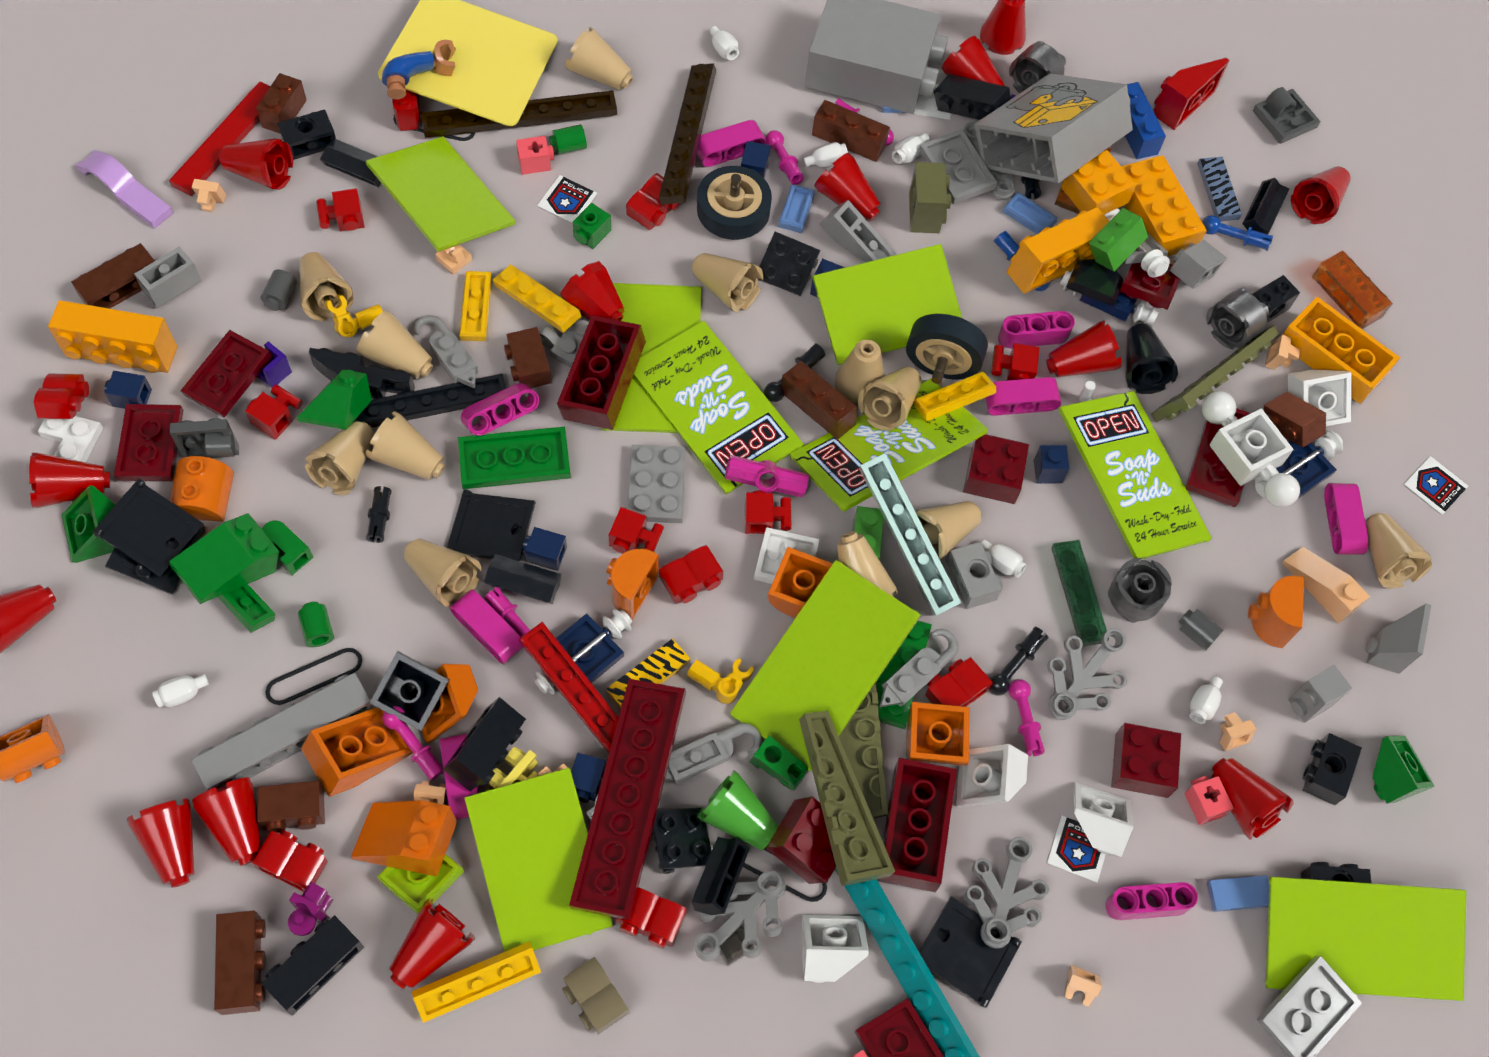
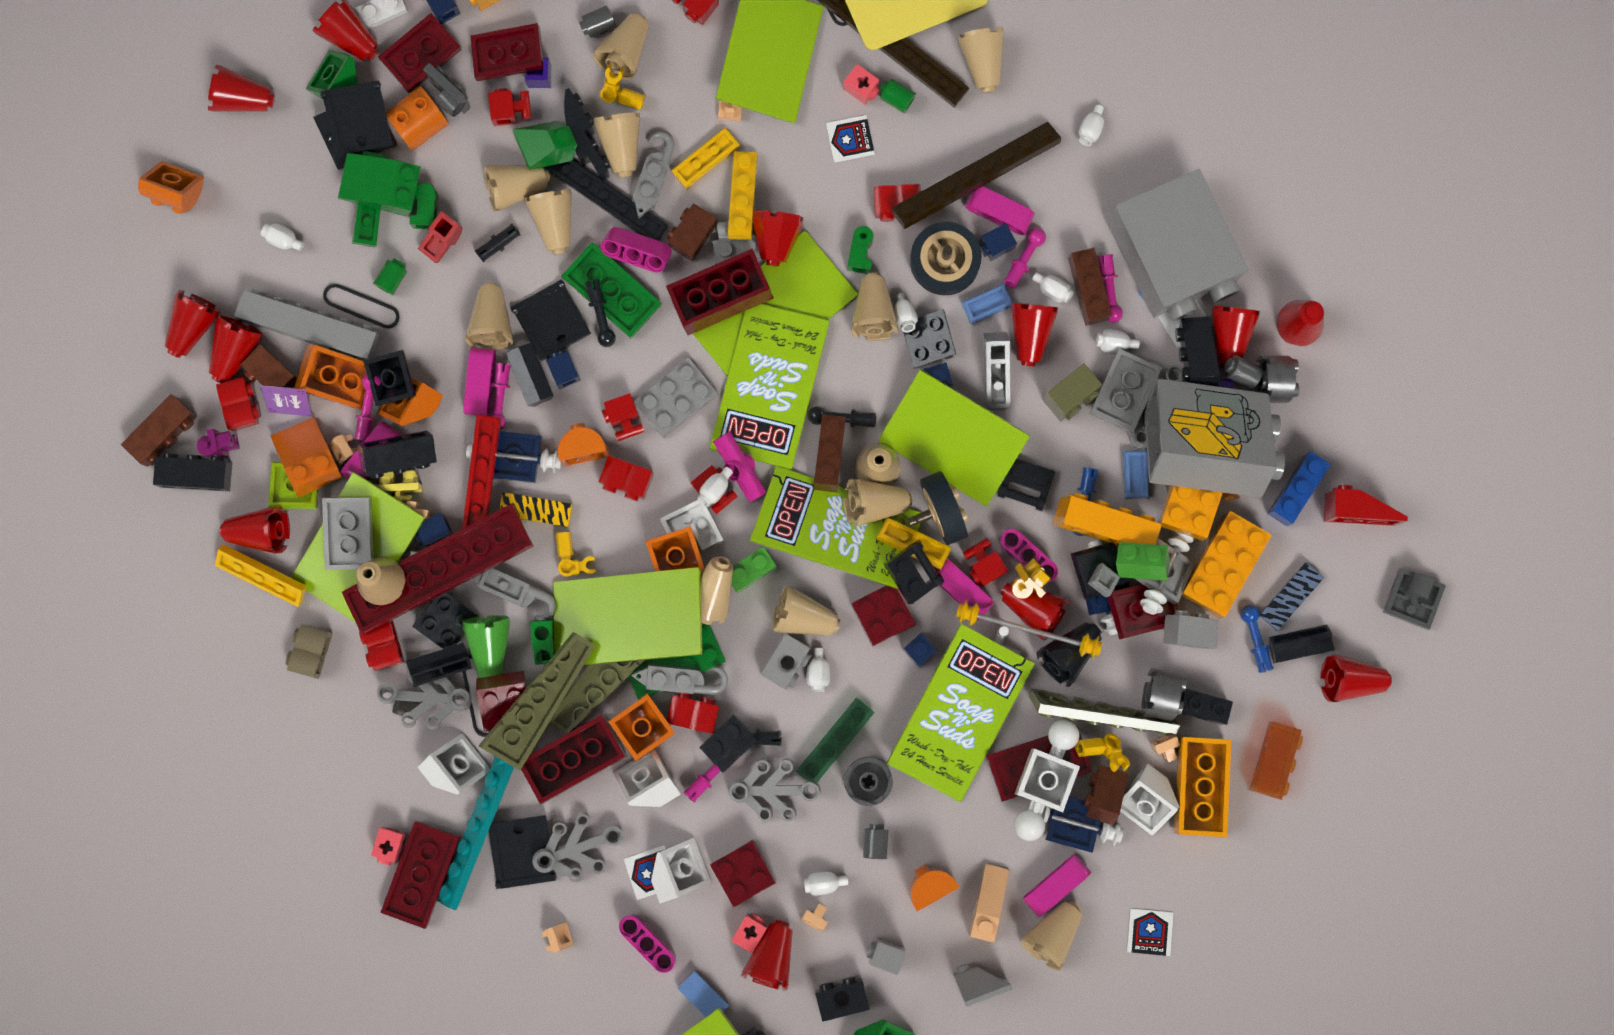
camera: 60 degrees right, 20 degrees up
(325, 551) = (442, 234): none -> red brick
(334, 808) = (286, 400): none -> medium lavender sticker
(518, 851) = (347, 532): none -> light grey plate
(550, 493) = (606, 336): none -> black pin
(591, 226) = (836, 178): green brick -> none
(594, 853) = (380, 580): none -> tan cone
(668, 257) = (861, 242): none -> green leg
(755, 257) = (905, 313): none -> white plant
(770, 502) = (714, 487): none -> white plant
(909, 534) = (766, 598): light aqua brick -> none
(971, 282) = (1028, 476): none -> black plate
(983, 414) = (907, 576): none -> black plate
(1013, 676) = (728, 743): none -> black plate
(1016, 79) = (1243, 372): none -> dark grey brick
(1065, 328) = (1031, 577): none -> yellow hips
(1109, 279) = (1104, 580): none -> light grey tile
(1156, 329) = (1086, 646): none -> axle
(1254, 391) = (1107, 746): none -> yellow bar

